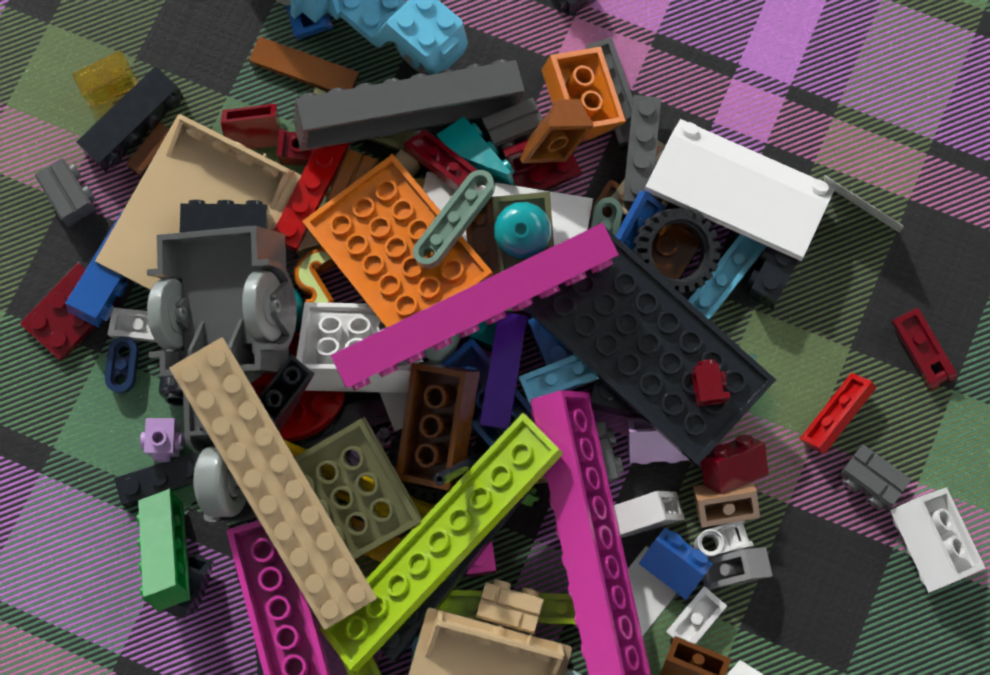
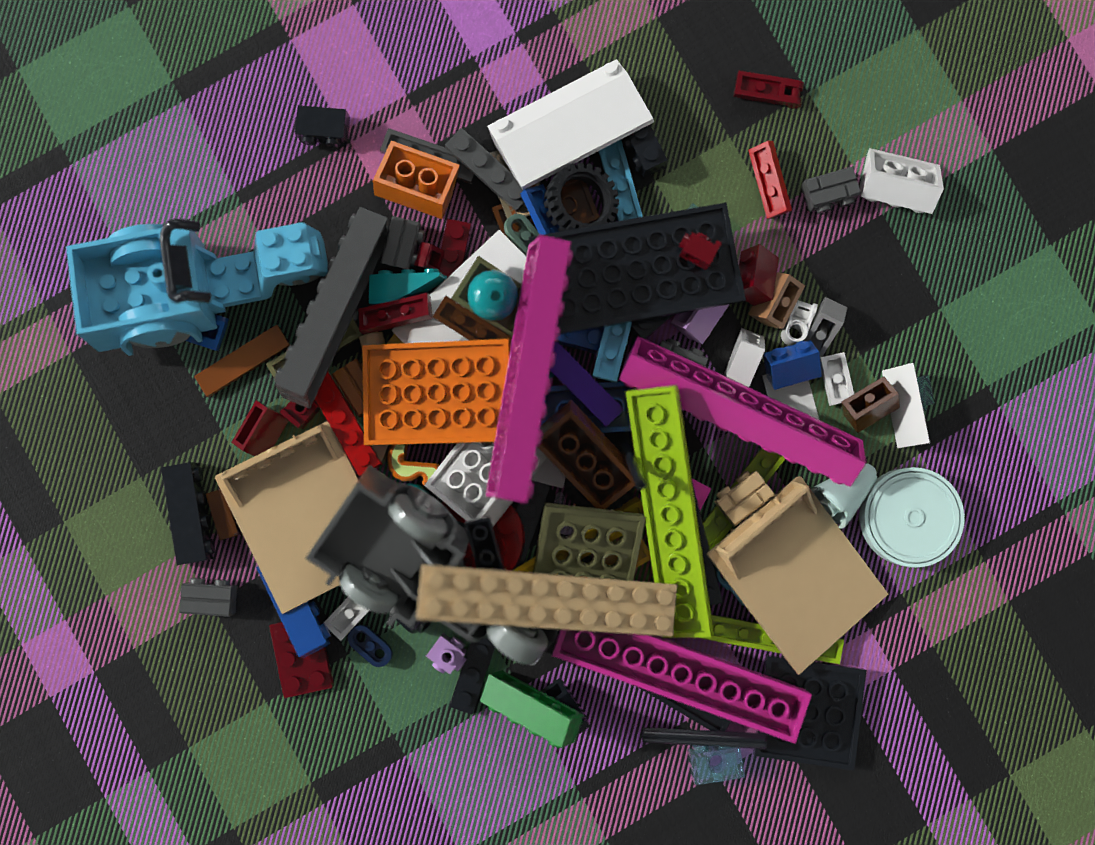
camera: 55 degrees left, 10 degrees up
(105, 79) = (142, 510): clear yellow brick -> none
(200, 216) = (323, 501): black brick -> none
(454, 219) = (449, 337): sand green plate -> none
(558, 133) = (436, 217): dark orange slope -> none
(864, 205) = (642, 50): white sticker -> none

